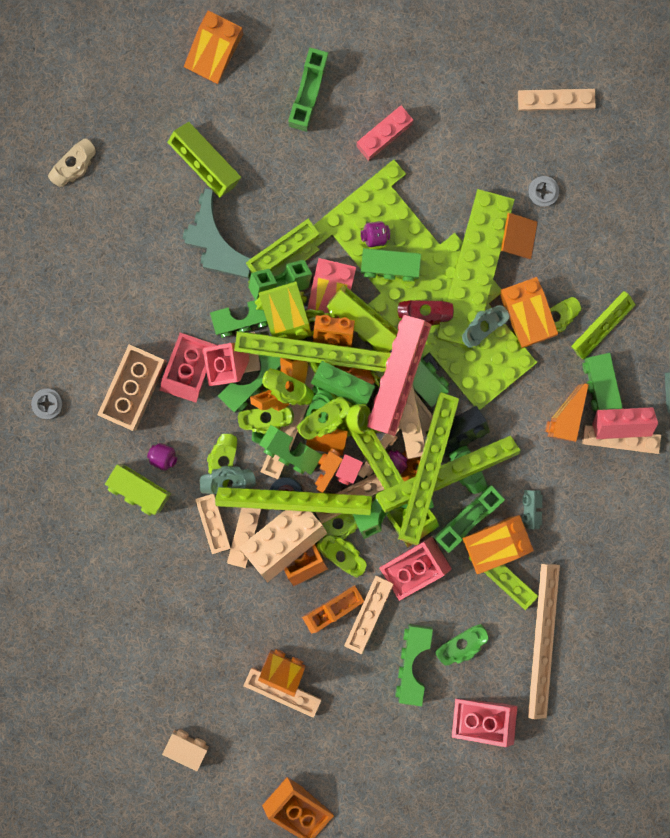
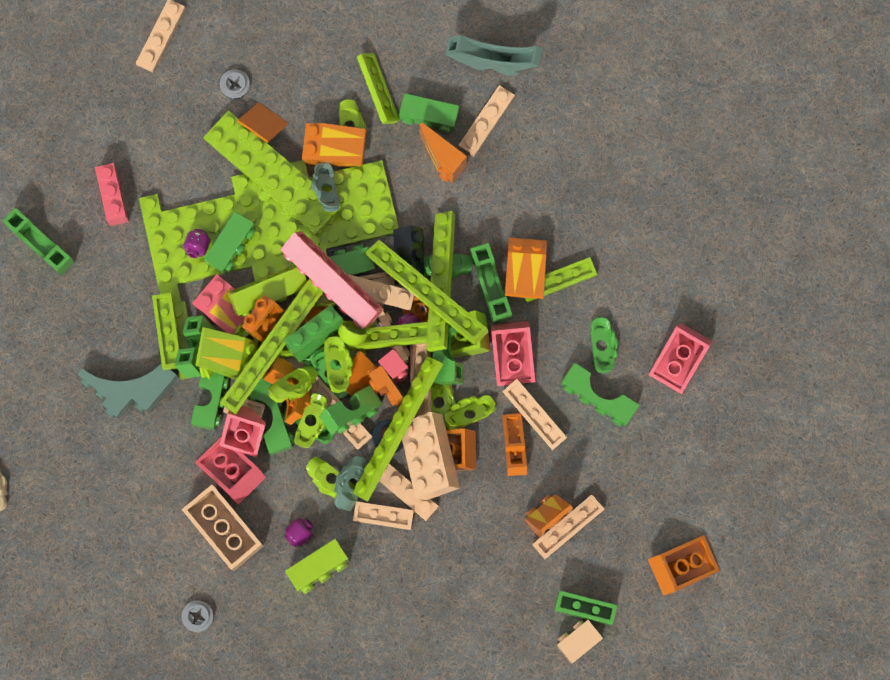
camera: 60 degrees left, 10 degrees down
(204, 159) = (50, 363): lime brick -> none
(216, 743) = (585, 608): none -> bright green brick
(440, 311) = (295, 220): dark red piece -> none
(531, 500) = (502, 223): sand green hinge -> none
(543, 641) = (632, 271): light nougat plate -> none
(624, 423) = (472, 109): coral brick -> none

